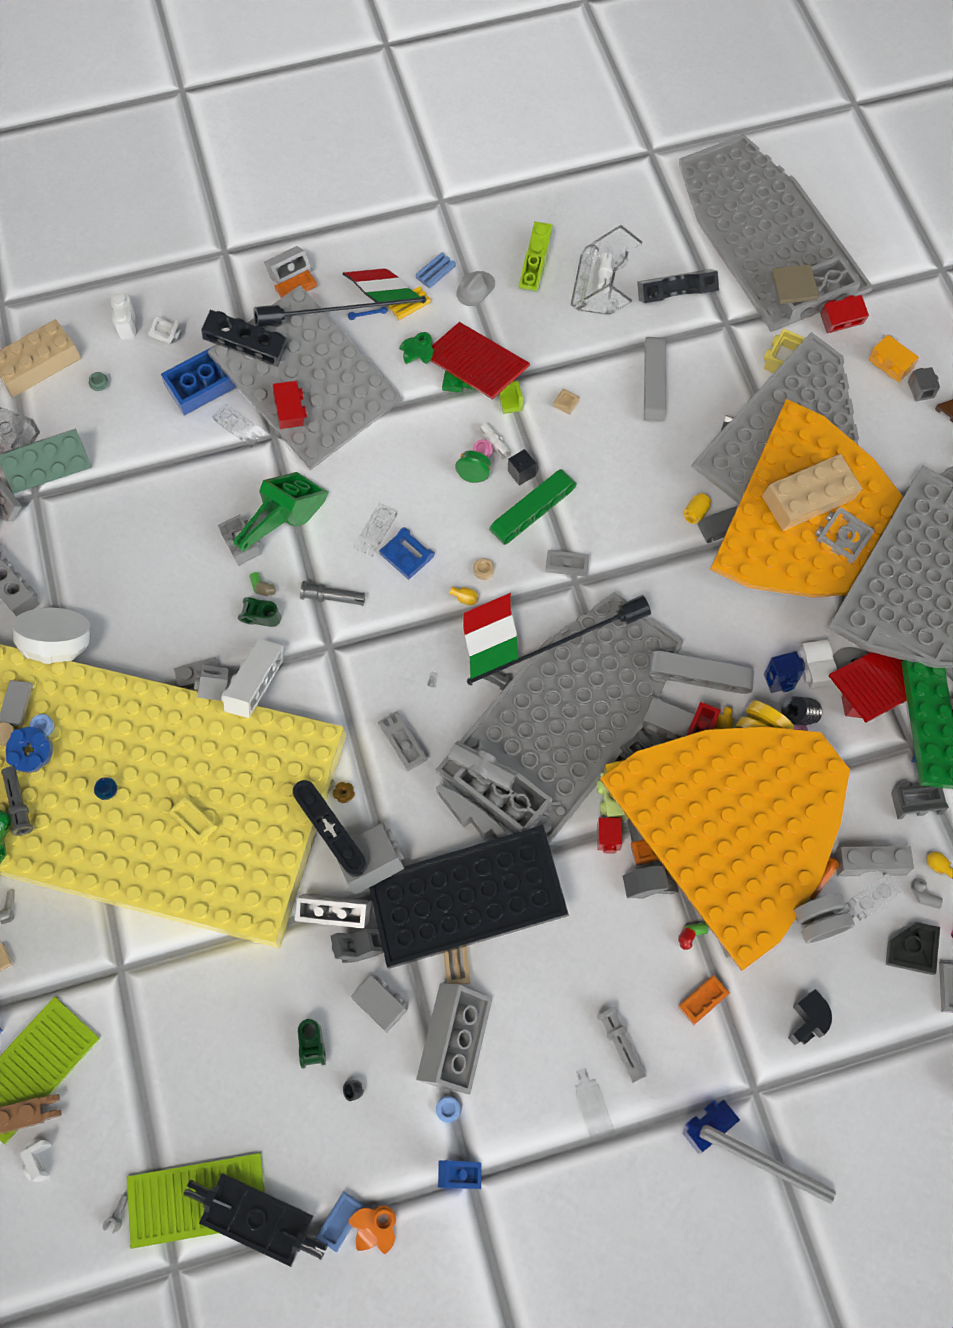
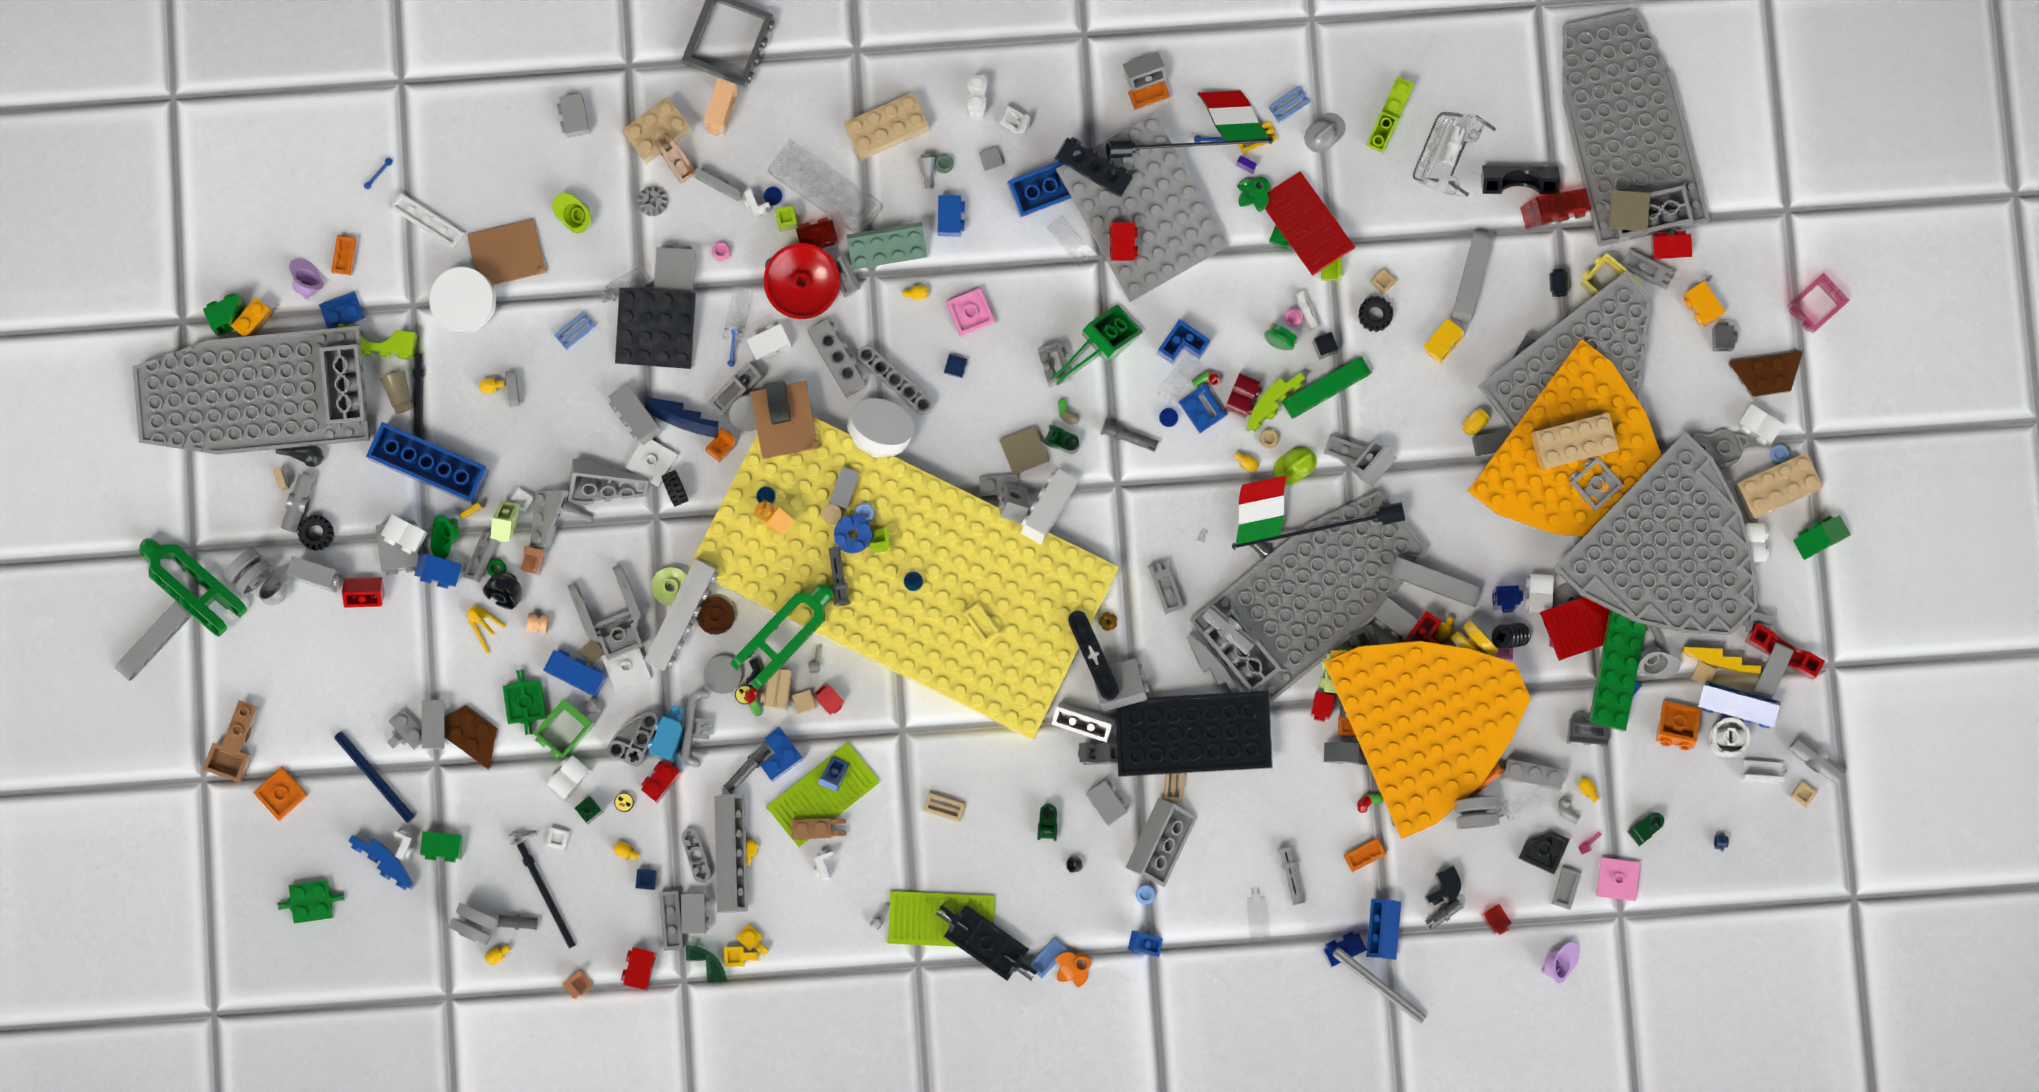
camera: 10 degrees right, 15 degrees up
(23, 949) = (828, 699): none -> red brick
(36, 1040) = (833, 774): none -> blue slope
(63, 752) = (880, 540): none -> lime panel
(74, 594) = (890, 372): none -> light grey beam
(81, 385) = (926, 165): none -> light grey cone
(83, 501) = (917, 292): none -> yellow cylinder
(109, 424) = (949, 215): none -> blue brick
(134, 564) = (955, 366): none -> dark blue plate
(142, 508) = (970, 312): none -> bright pink plate
(146, 369) = (990, 158): none -> light grey tile
(201, 1054) = (959, 812): none -> tan tile
(220, 632) = (1024, 450): none -> dark tan tile
(371, 568) = (1168, 417): none -> clear blue plate
(372, 487) = (1180, 338): none -> blue brick
(404, 325) = (1246, 164): none -> dark purple tile
(409, 522) = (1206, 377): none -> arm
(445, 531) = (1242, 396): none -> dark red brick
(475, 531) = (1267, 407): none -> lime slope
(522, 585) = (1295, 464): none -> lime piece
(566, 439) = (1375, 325): none -> black tyre
(601, 566) = (1373, 462): none -> light grey brick
(643, 440) = (1444, 341): none -> yellow hinge
(718, 303) = (1555, 208): none -> clear red wedge
(743, 367) = (1559, 283): none -> black brick
(752, 1088) = (1383, 929): none -> blue brick
(819, 1053) = (1444, 914): none -> dark grey pin
(839, 341) = (1647, 269): none -> light grey hinge
(885, 1045) = (1496, 920): none -> clear red brick

